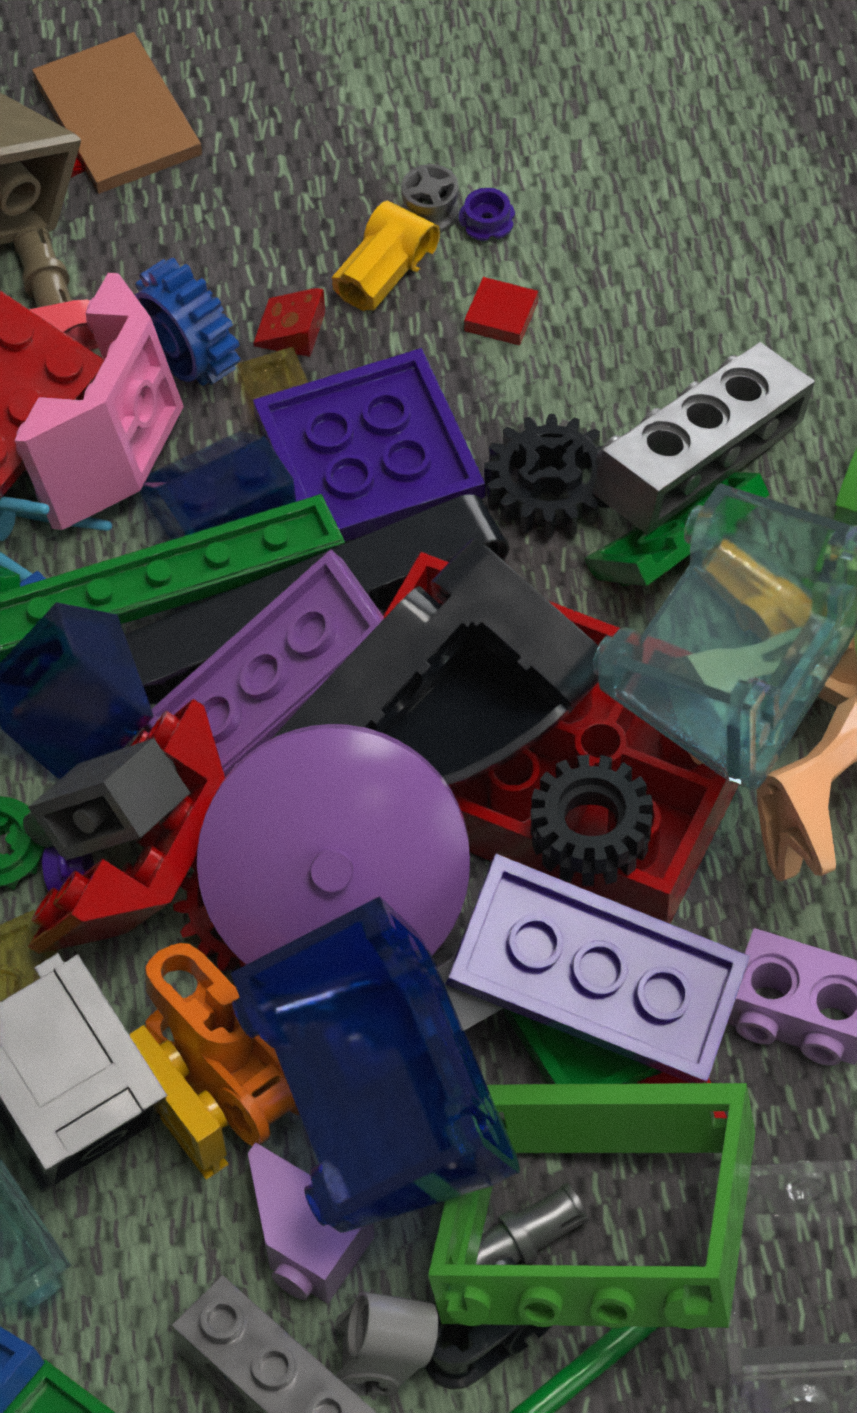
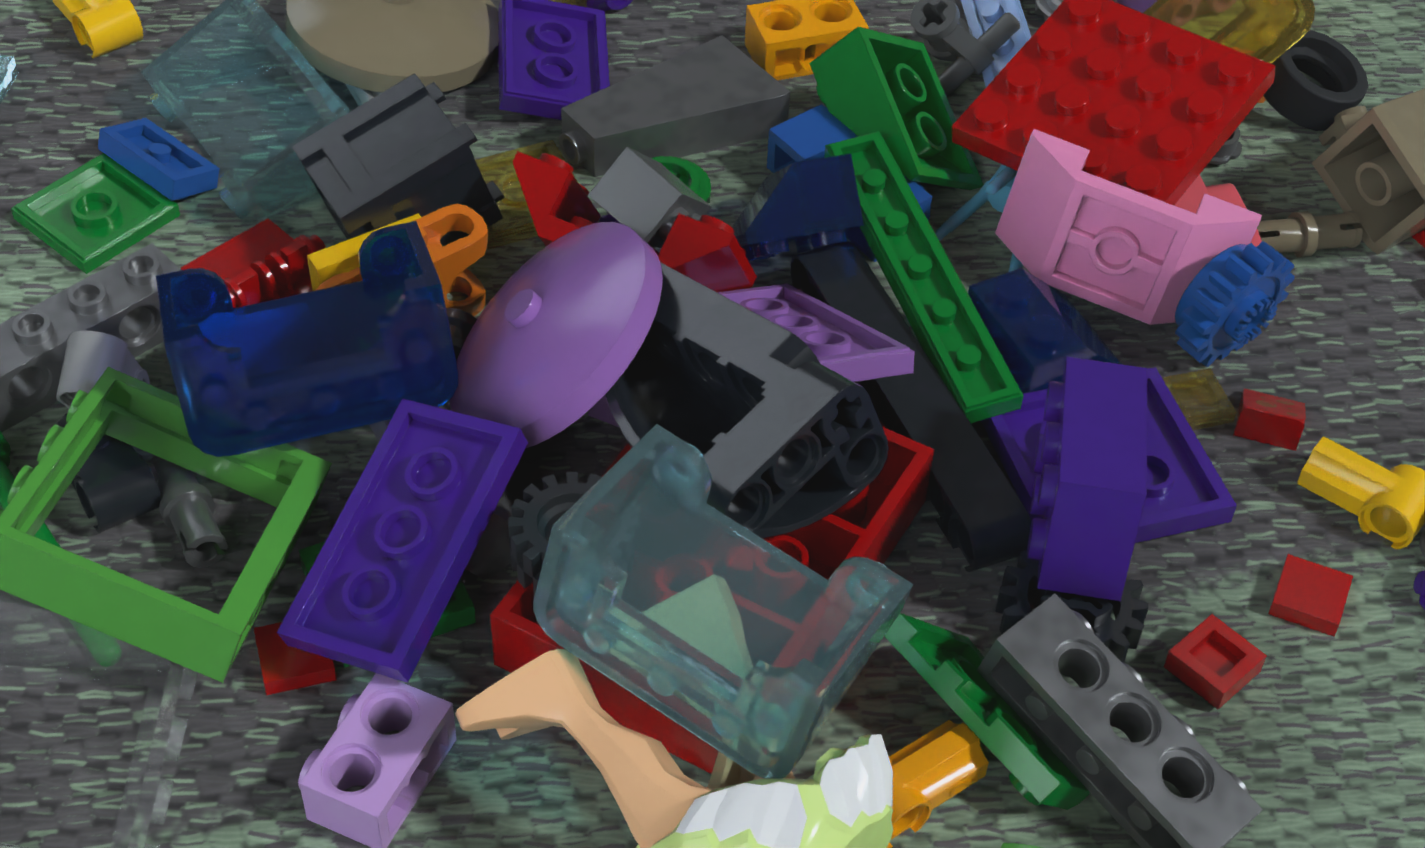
camera: 90 degrees right, 10 degrees down
(158, 1247) = (261, 264): none -> red hinge
(464, 417) = (1090, 478): none -> dark purple brick
(590, 378) = (1215, 661): none -> red plate

